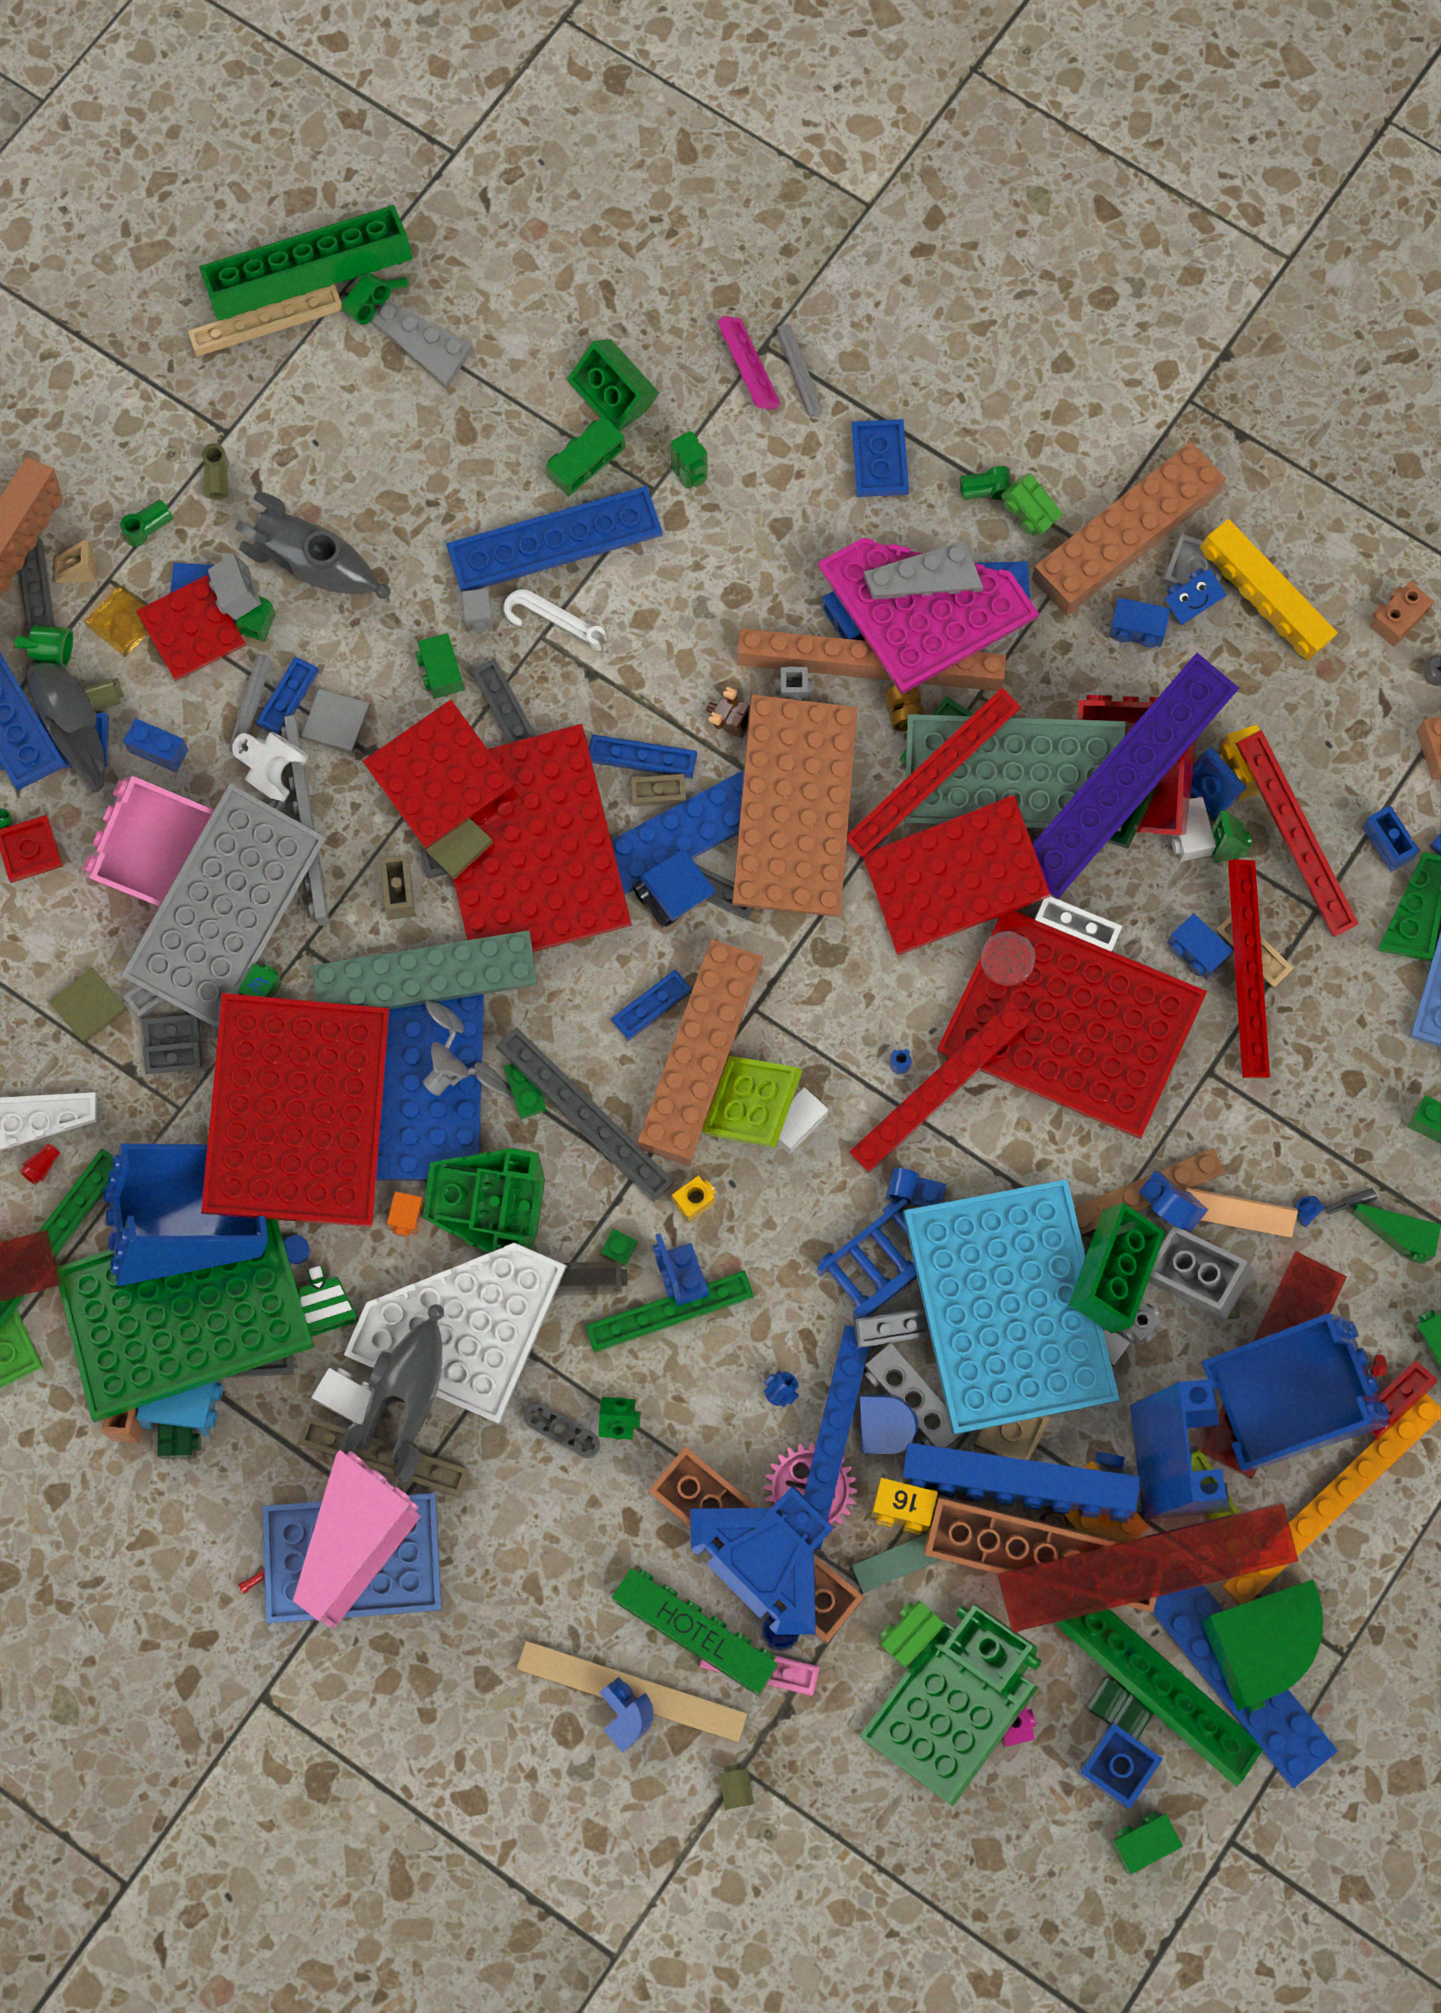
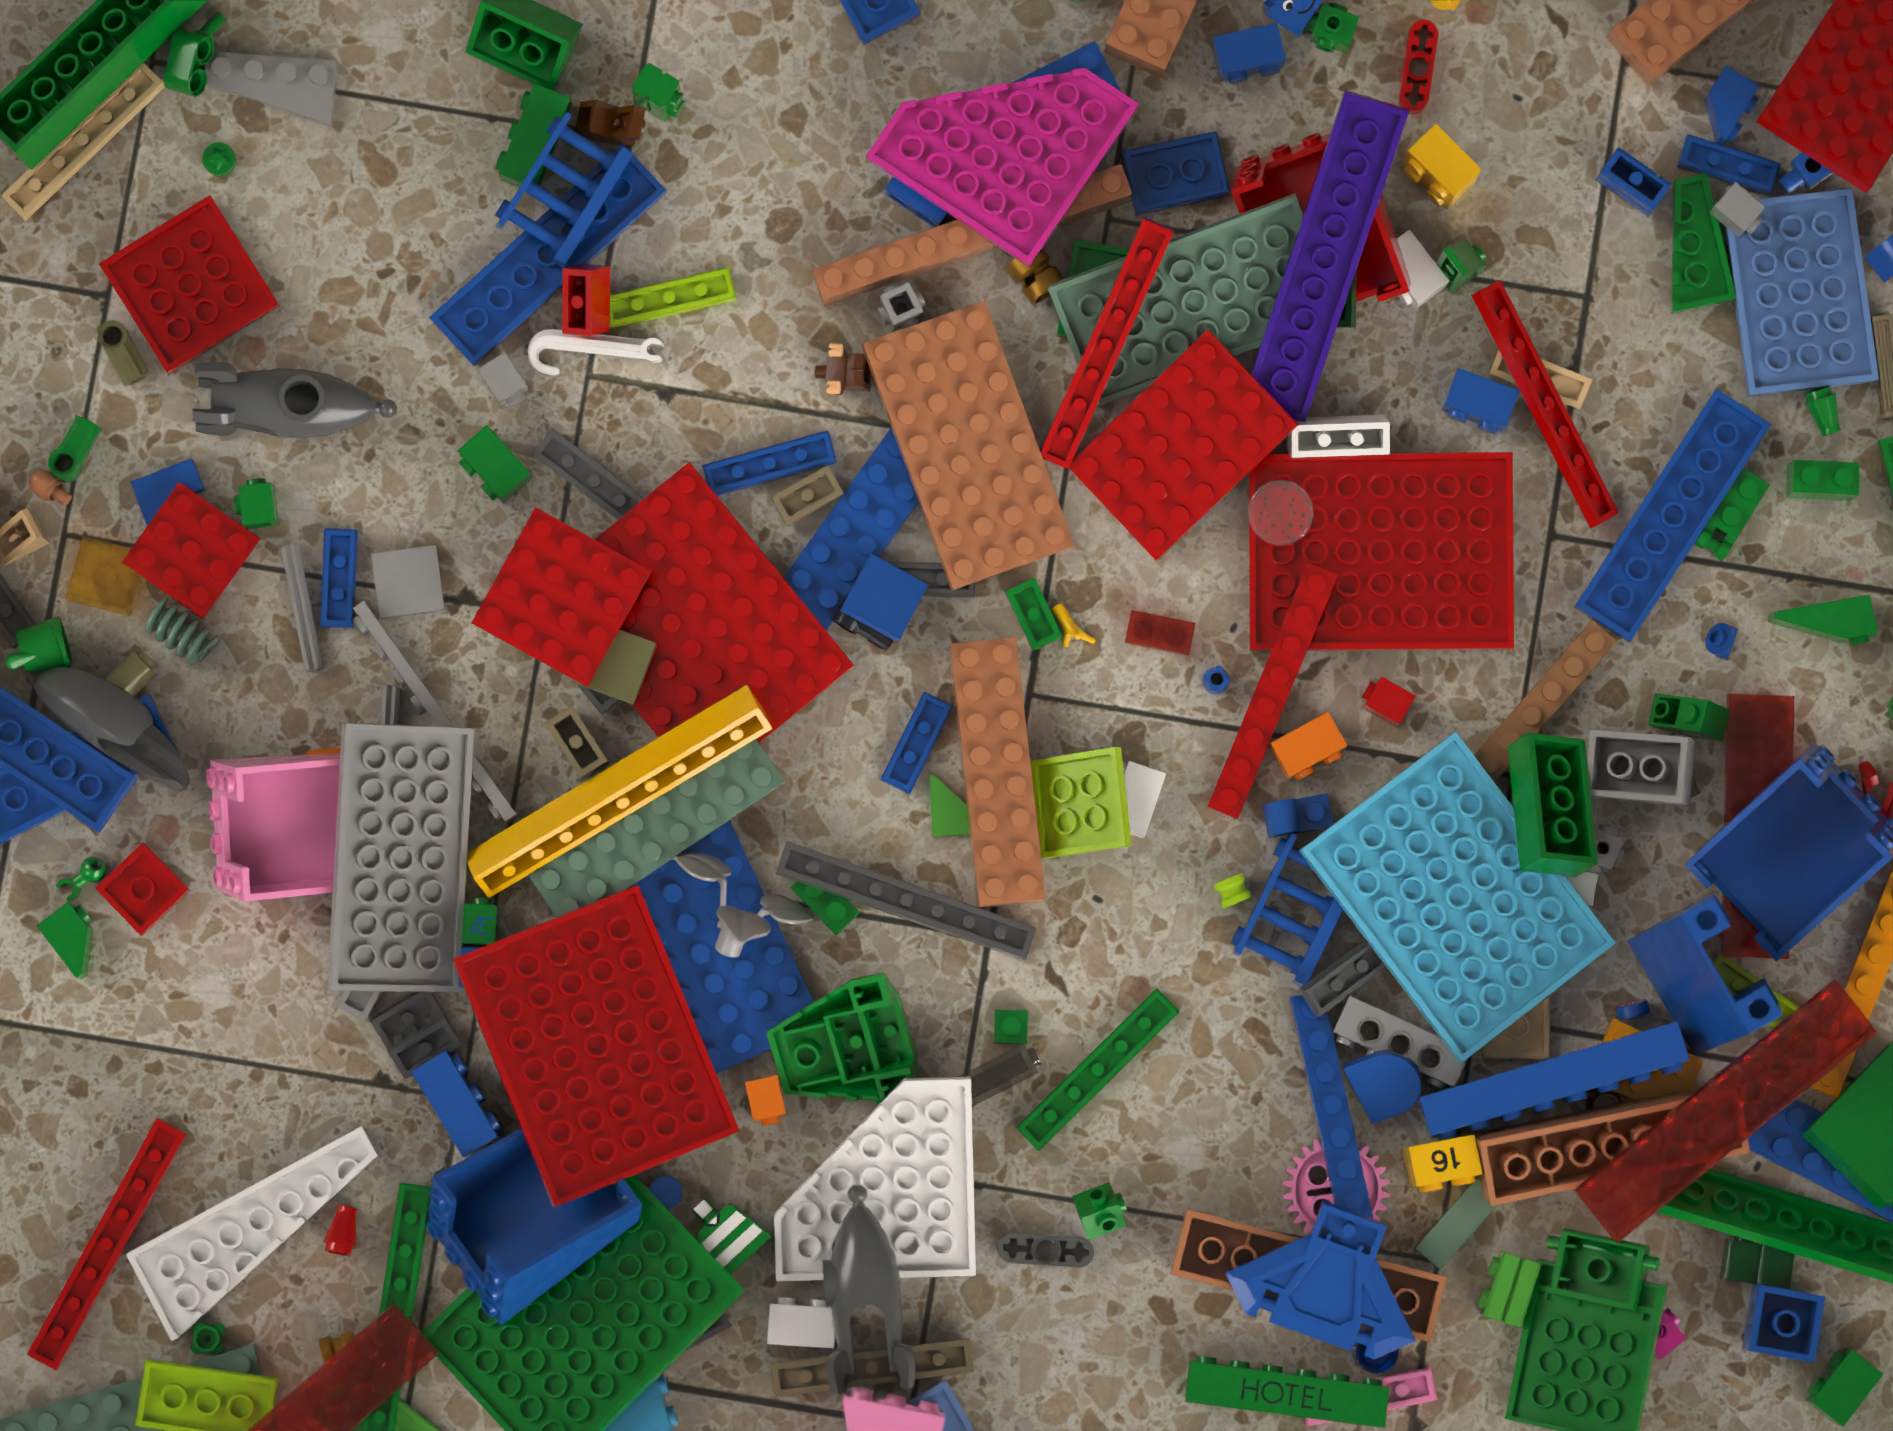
camera: 30 degrees left, 10 degrees up
(88, 1005) = (300, 1032): olive tile -> none
(114, 541) = (48, 487): none -> nougat cylinder
(152, 681) = (180, 633): none -> sand green piece
(155, 745) = (223, 705): blue brick -> none
(173, 1103) = (458, 1103): none -> blue brick
(233, 587) = (219, 484): light grey brick -> none
(267, 761) = (359, 668): white piece -> none
(288, 447) = (189, 284): none -> red plate
(354, 374) = (219, 159): none -> green tile
(409, 933) = (617, 791): none -> yellow brick
(564, 578) = (586, 299): none -> red brick
(588, 520) = (578, 217): none -> blue fence
(627, 609) = (671, 298): none -> lime tile
(644, 468) = (610, 123): none -> reddish brown brick
(649, 1065) = (947, 811): none -> bright green tile
(680, 1272) = (1096, 1025): blue bracket -> none
(689, 1209) = (1056, 946): yellow brick -> none
(781, 1388) = (1256, 1097): blue gear -> none
(785, 950) = (1033, 614): none -> green plate
(808, 972) = (1069, 626): none -> yellow bar
(838, 1223) = (1233, 890): none -> lime wheel
(874, 1007) = (1160, 633): none -> clear red plate
(937, 571) = (1002, 109): light grey wing -> none
(948, 1142) = (1308, 746): none -> orange brick
(1025, 1136) = (1387, 701): none -> red brick
(1045, 684) = (1176, 173): none -> blue tile
(1172, 1204) = (1579, 708): blue brick -> none
(1210, 631) = (1337, 18): none -> green brick
(1215, 783) = (1417, 208): blue tile -> none
(1247, 1213) = (1650, 678): light nougat tile -> none
(1262, 700) = (1430, 45): none -> red beam
(1263, 1255) = (1689, 716): none -> green slope
(1297, 833) = (1531, 227): red plate -> none
(1310, 1098) = (1672, 515): none -> blue plate
(1352, 1200) = (1763, 609): dark grey pin -> none
(1359, 1118) = (1733, 513): none -> green plate

